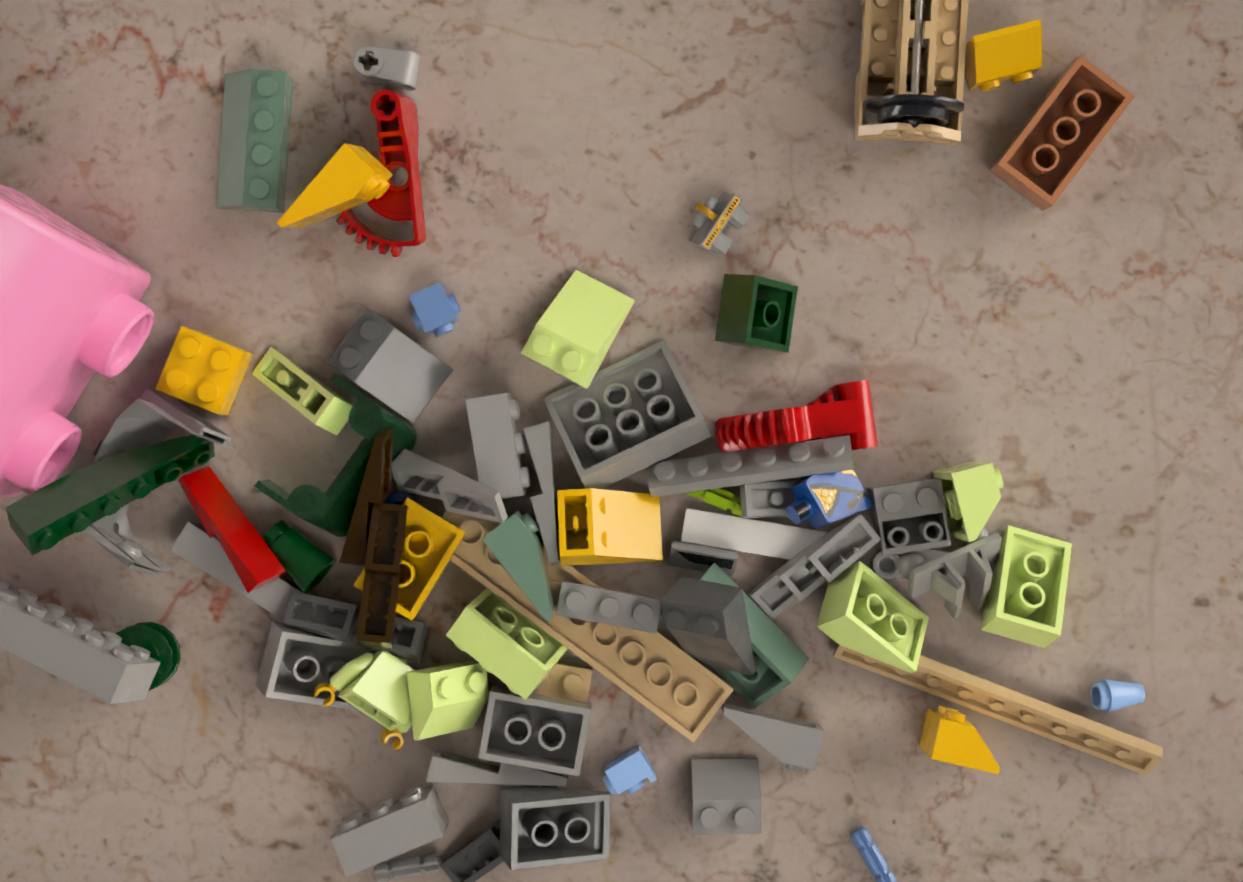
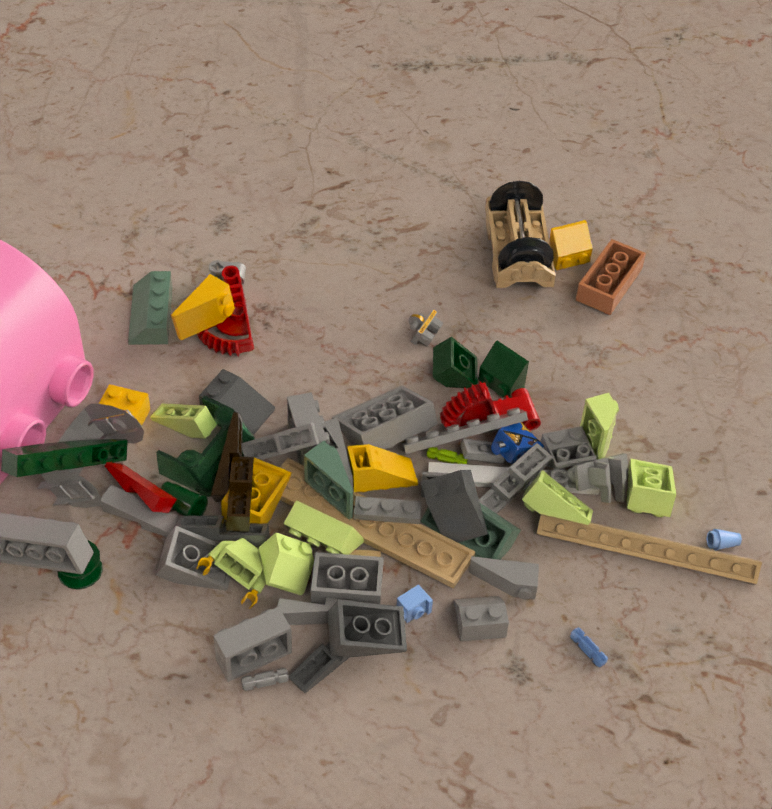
camera: 15 degrees left, 40 degrees down
(434, 310) = (262, 375): medium blue brick -> none
(578, 328) = (348, 381): yellowish green slope -> none
(832, 344) = (503, 370): none -> dark green slope
(955, 740) = (628, 563): yellow slope -> none

